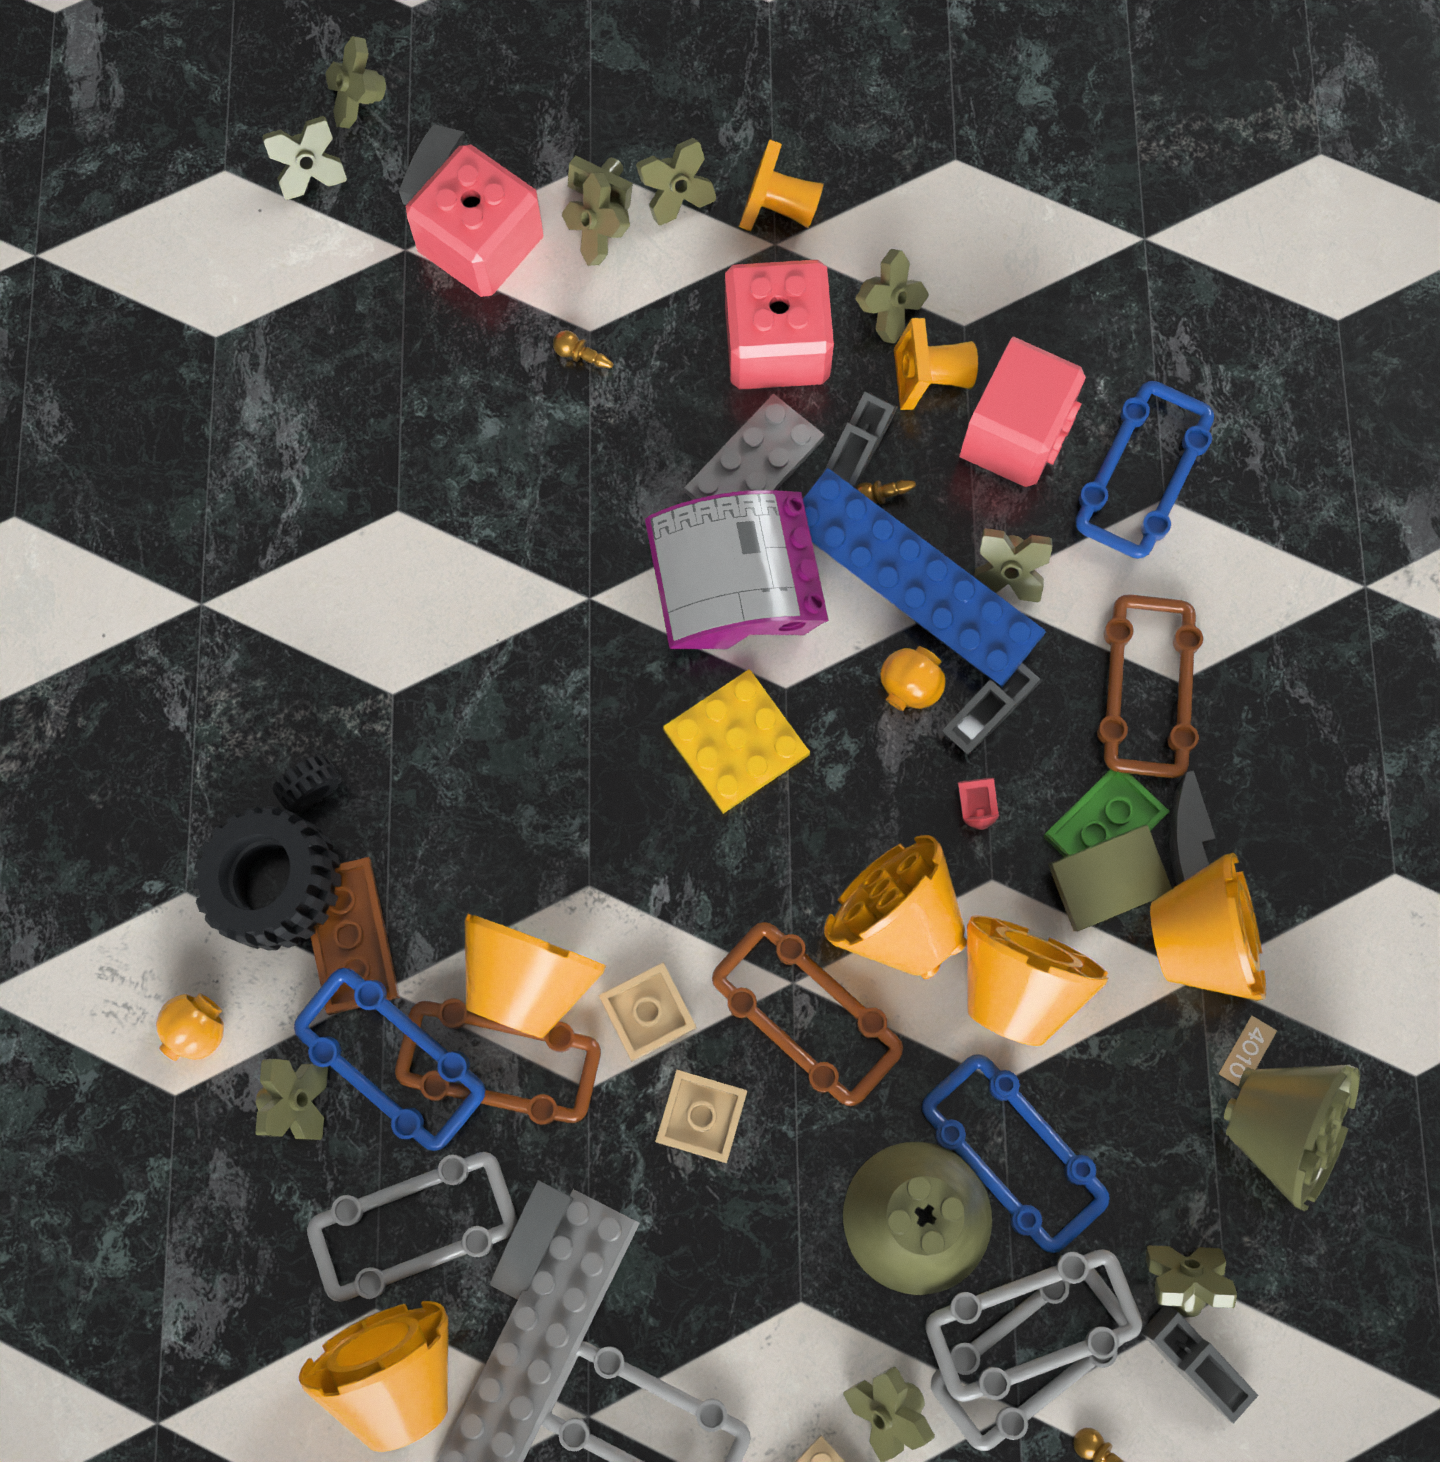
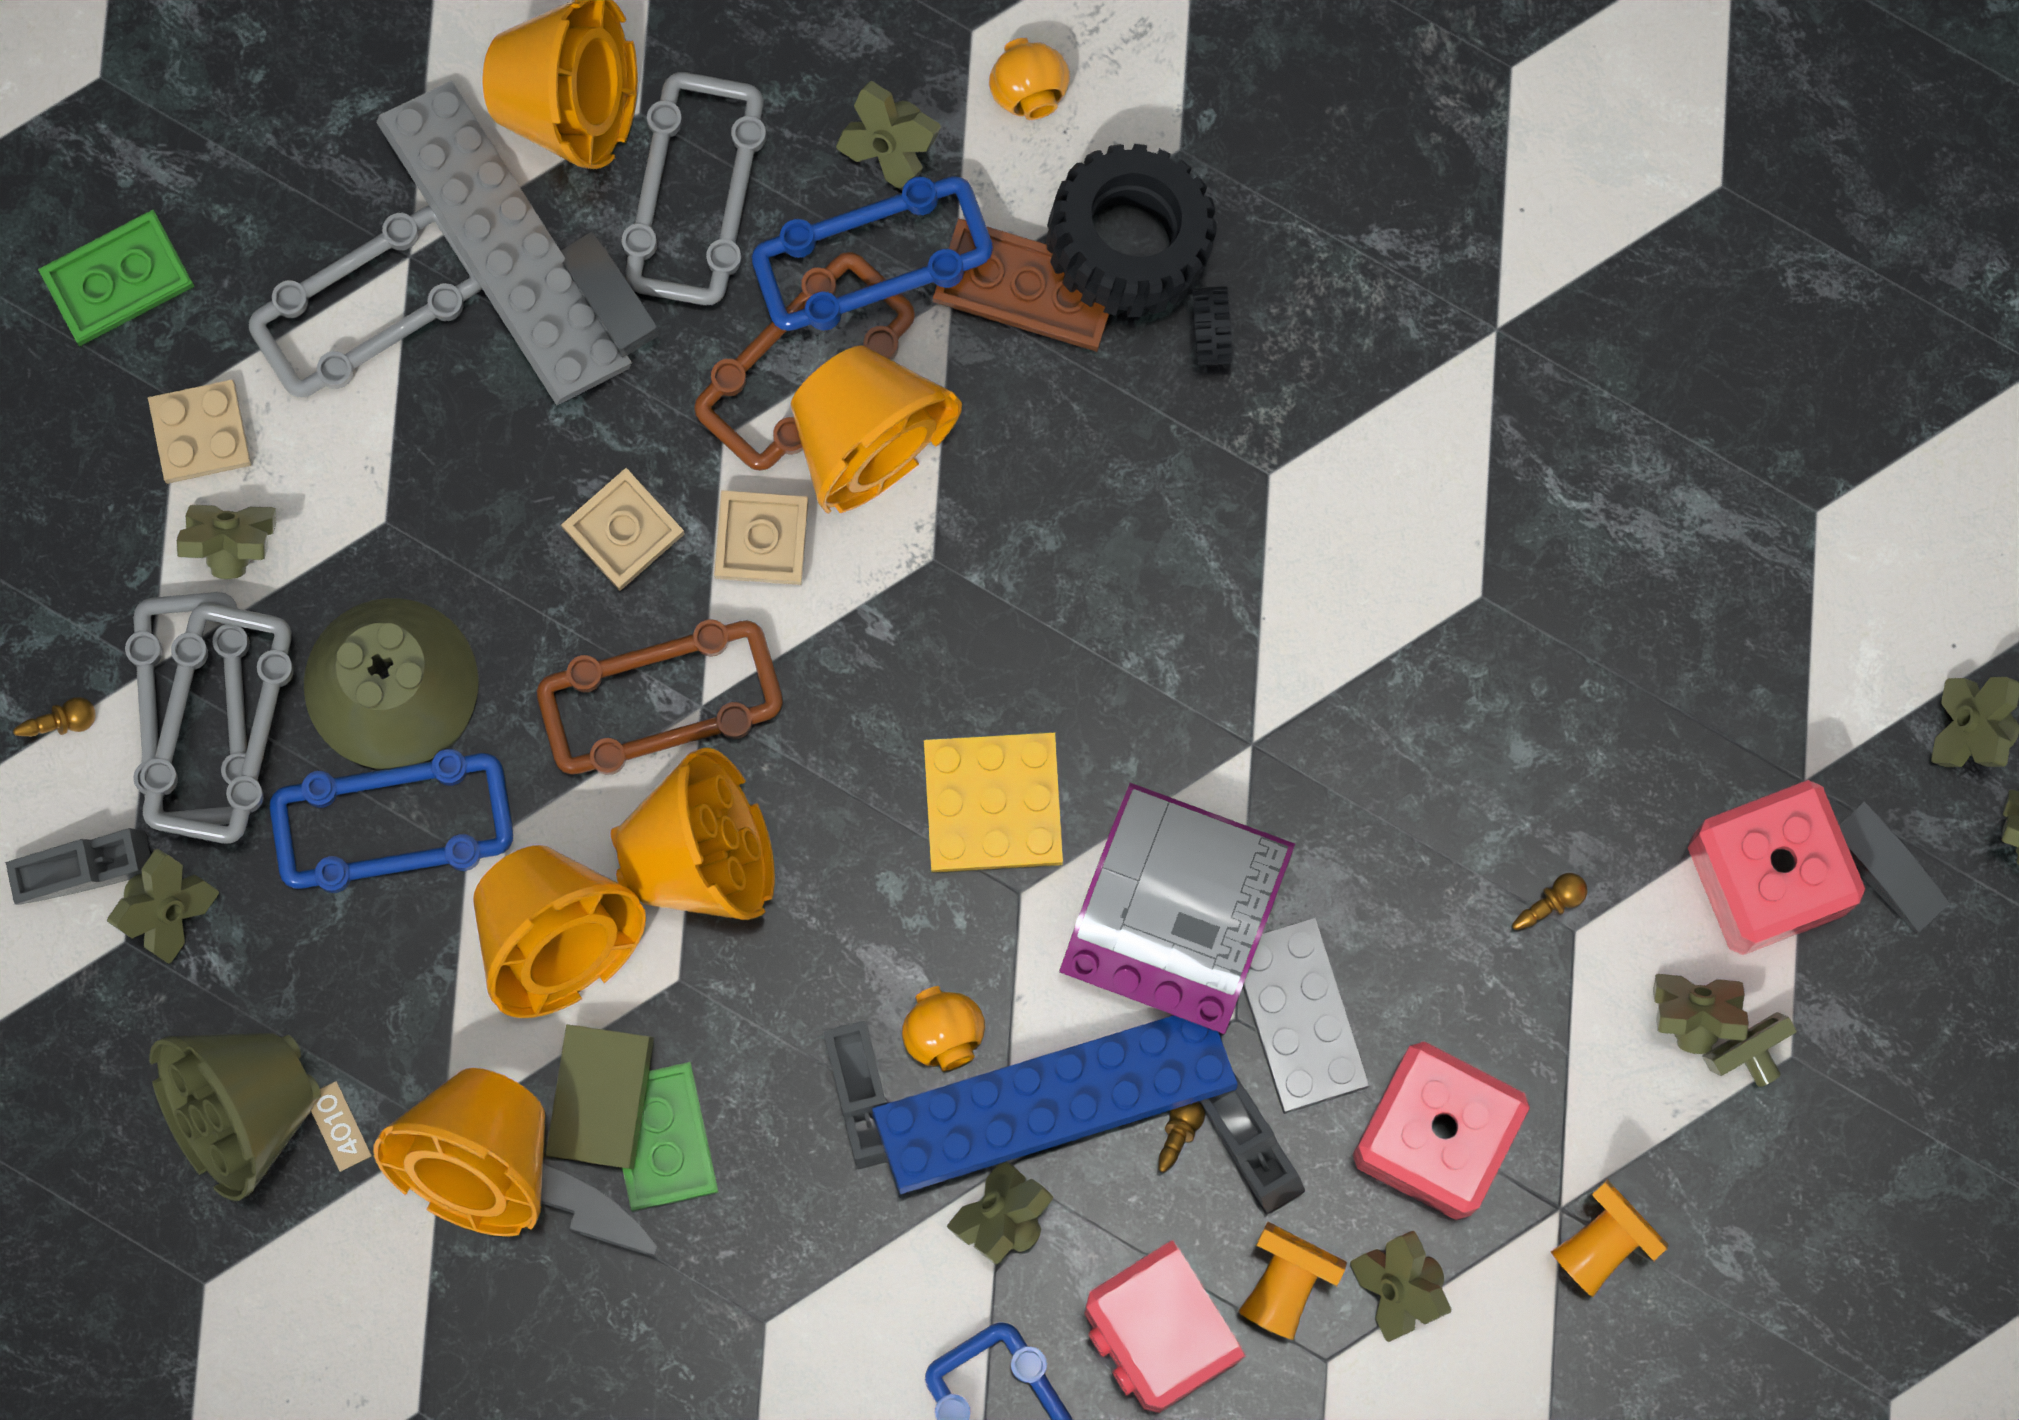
camera: 120 degrees right, 5 degrees up
(676, 181) = (1700, 1128): olive plant -> none
(978, 802) = (765, 1011): coral plate -> none
(1113, 728) = (856, 1286): dark orange bar -> none

